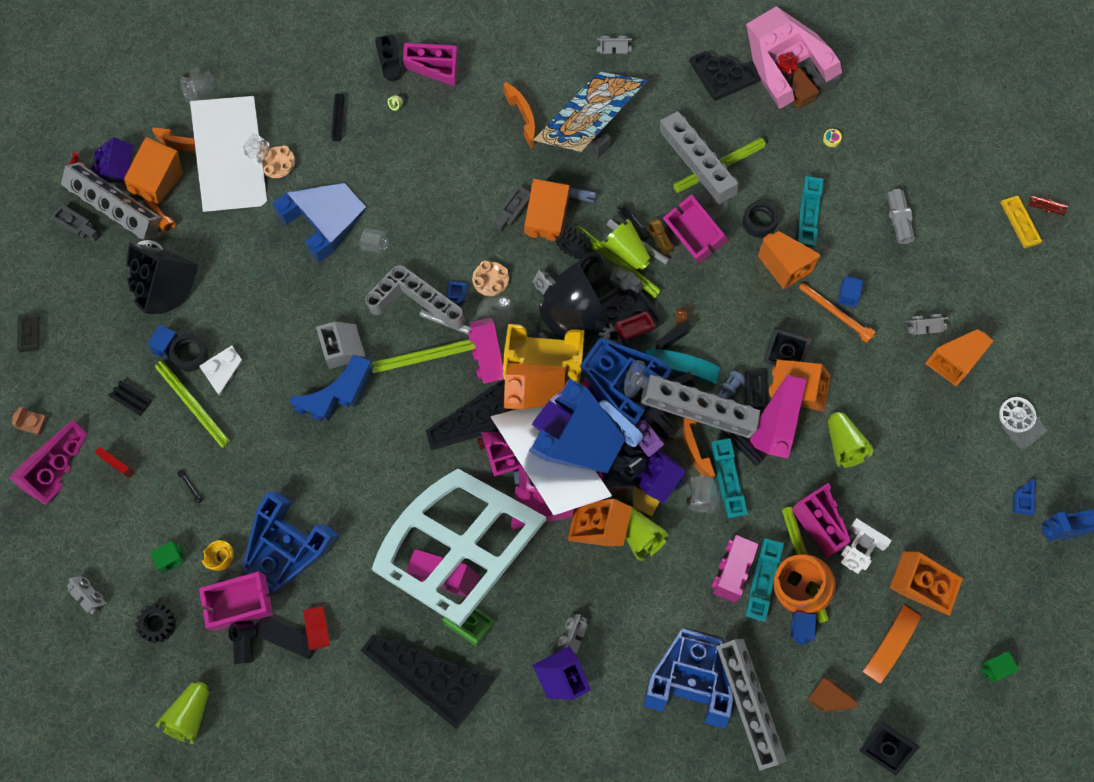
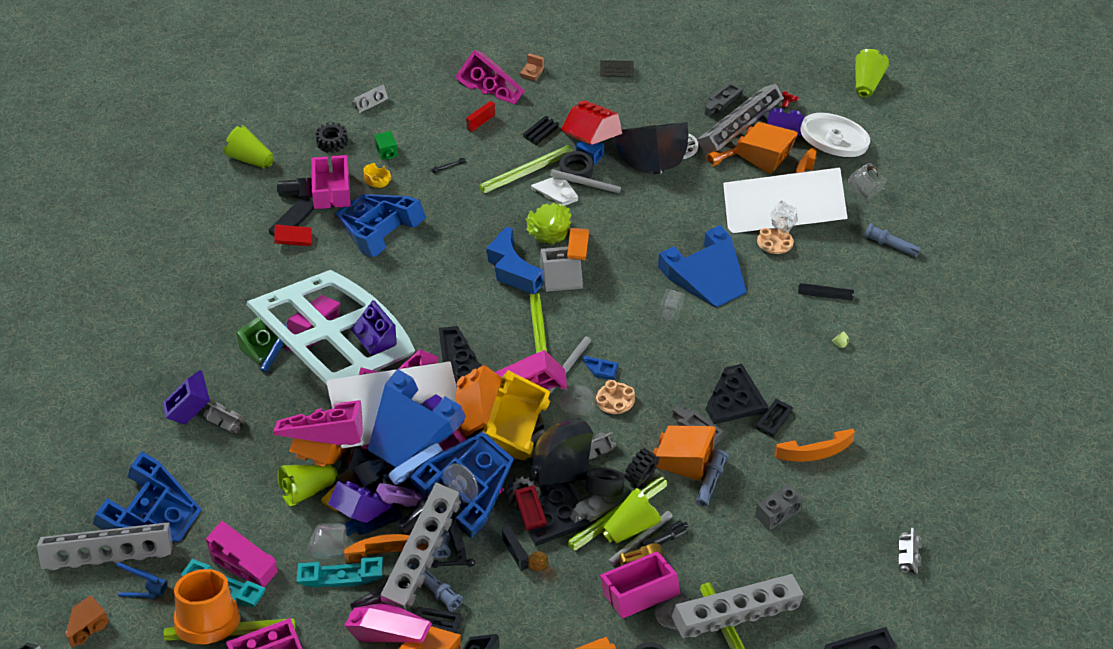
camera: 100 degrees right, 20 degrees down
(36, 89) = (869, 71): none -> lime cone
(132, 114) = (835, 134): none -> white dish
(134, 337) = (591, 123): none -> red slope
(211, 340) = (585, 181): none -> light grey bar
(266, 72) = (883, 237): none -> sand blue pin
(277, 363) = (549, 223): none -> lime hair
(307, 325) = (578, 243): none -> orange slope
(390, 66) = (899, 336): black piece -> none
(418, 294) = (618, 325): light grey beam -> none
(433, 61) = (887, 372): dark pink wedge -> none
(438, 683) = (214, 316): black wing -> none
(450, 503) = (375, 329): none -> dark purple slope
(476, 179) = (735, 396): none -> black plate
(481, 606) = (272, 355): none -> blue bar
(507, 149) = (766, 429): none -> black tile
(590, 111) = (808, 502): sticker -> none
(601, 505) = (333, 426): none -> dark pink wedge
(684, 363) = (478, 555): teal slope -> none
(778, 646) = (154, 585): none -> blue plant
(803, 627) = (161, 610): blue brick -> none

